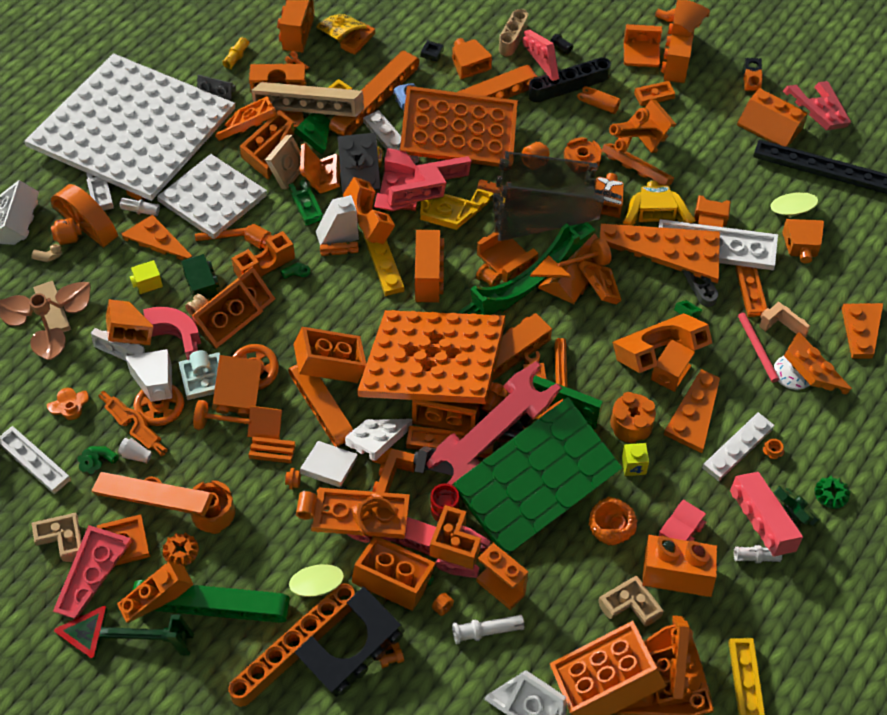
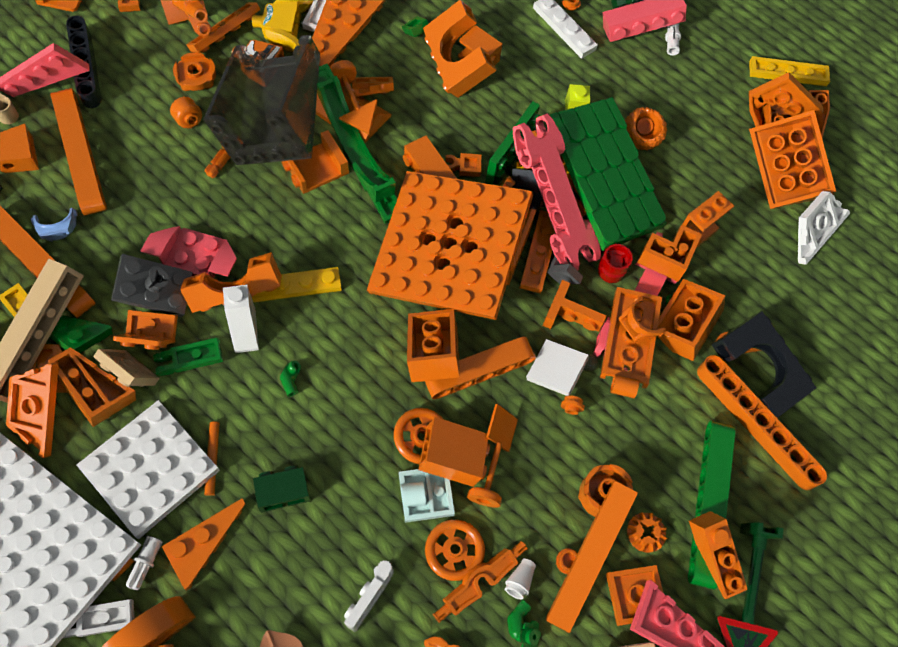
camera: 90 degrees left, 10 degrees up
(127, 324) = (344, 582): orange slope -> none
(146, 277) = (266, 557): neon yellow brick -> none
(152, 373) = (422, 551): white slope -> none
(176, 323) = (346, 519): coral arch -> none
(198, 302) = (325, 493): tan wheel -> none
(233, 308) = (338, 451): orange slope -> none
(256, 236) = (232, 415): orange brick -> none
(272, 446) = (534, 407): orange tile -> none
(277, 253) = (271, 409): orange arch -> none
(316, 580) = (694, 392): yellowish green shield -> none
(339, 248) = (268, 328): orange axle -> none
(377, 435) = (536, 314): white wing -> none
(385, 132) = (109, 254): white plate -> none
(429, 181) = (202, 215): coral bracket -> none
(429, 266) = (323, 234): orange brick -> none
(442, 604) = (717, 282): orange axle -> none
(452, 210) = (237, 212): yellow wing -> none
(457, 126) = (125, 176): orange plate -> none
(477, 629) = (742, 258): white pin -> none
(489, 276) = (341, 184): orange bush -> none
(561, 43) = (20, 58): black pin -> none
(561, 362) = (460, 142): orange axle -> none
(600, 99) = (122, 40): orange piece -> none
(632, 417) = (533, 86): orange brick -> none
(634, 596) = (714, 132): tan brick -> none
(680, 565) = (691, 87): orange piece -> none
(684, 522) = (645, 81): coral brick -> none
(694, 413) = (528, 50): orange wing -> none
(699, 289) = (395, 14): dark grey beam -> none

